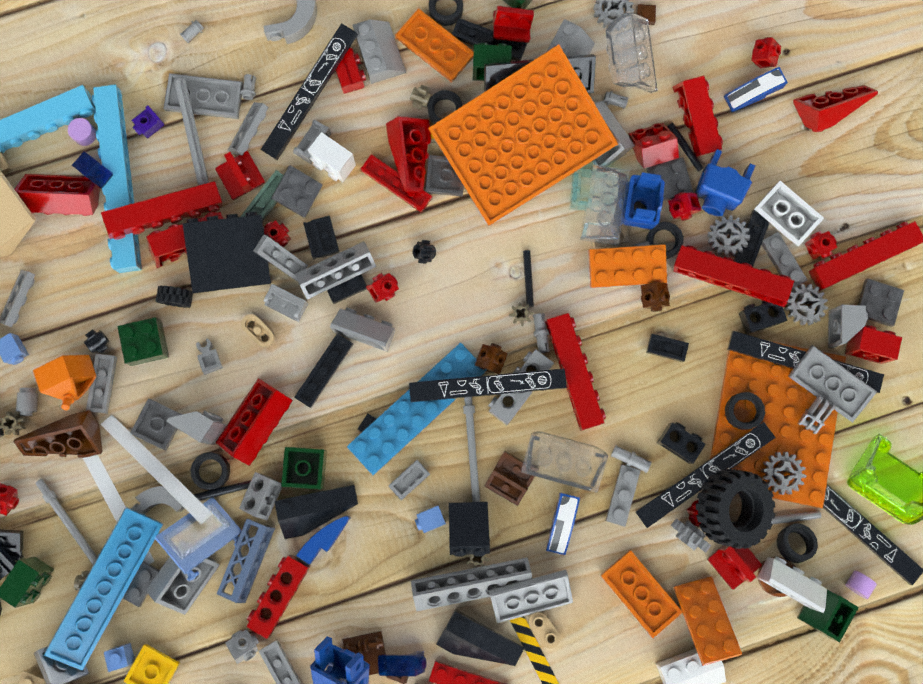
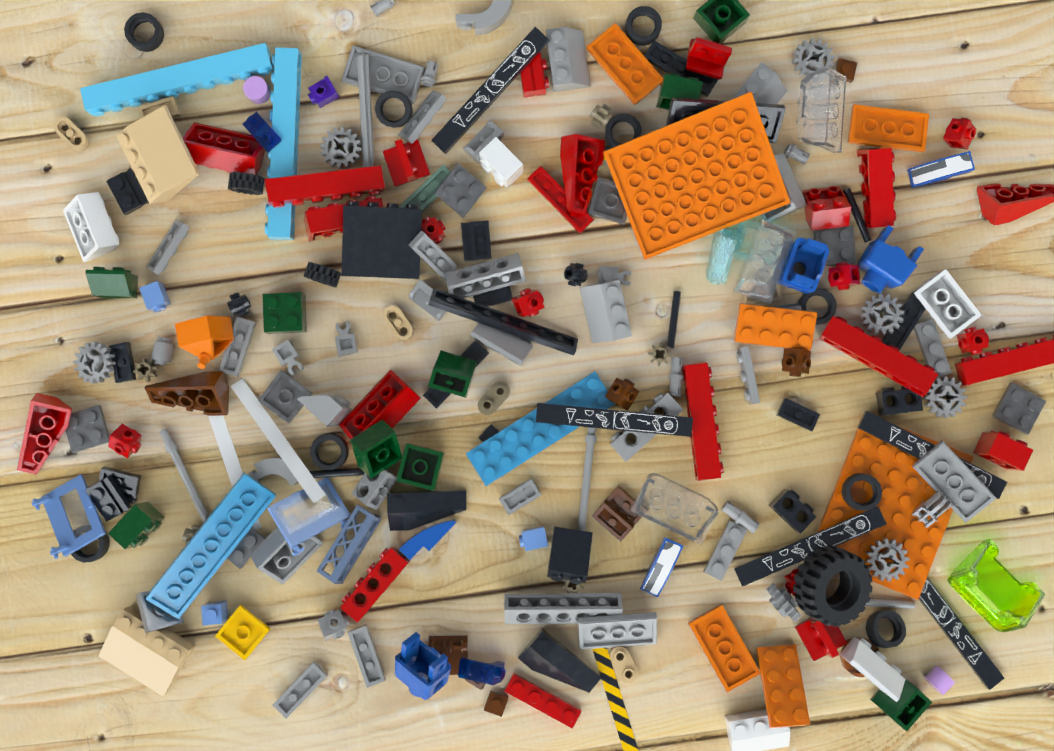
camera: 15 degrees right, 5 degrees up
(84, 222) = (246, 183): none -> black tyre
(152, 382) = (286, 355): none -> light grey plate
(179, 165) = (335, 153): none -> light grey gear
(205, 121) = (380, 114): none -> black tyre
(255, 457) = (376, 448): none -> dark green brick
(319, 370) = (452, 374): none -> dark green slope
(360, 309) = (503, 321): none -> black tile
(365, 387) = (494, 399): none -> dark tan plate
(458, 248) = (610, 273): none -> light grey plate
(460, 281) = (605, 311): none -> light grey slope
(562, 209) = (721, 256): none -> clear light blue slope
(610, 318) = (747, 375): none -> light grey plate
(696, 59) = (888, 128): none -> orange plate
(845, 323) = (980, 424): light grey slope -> none

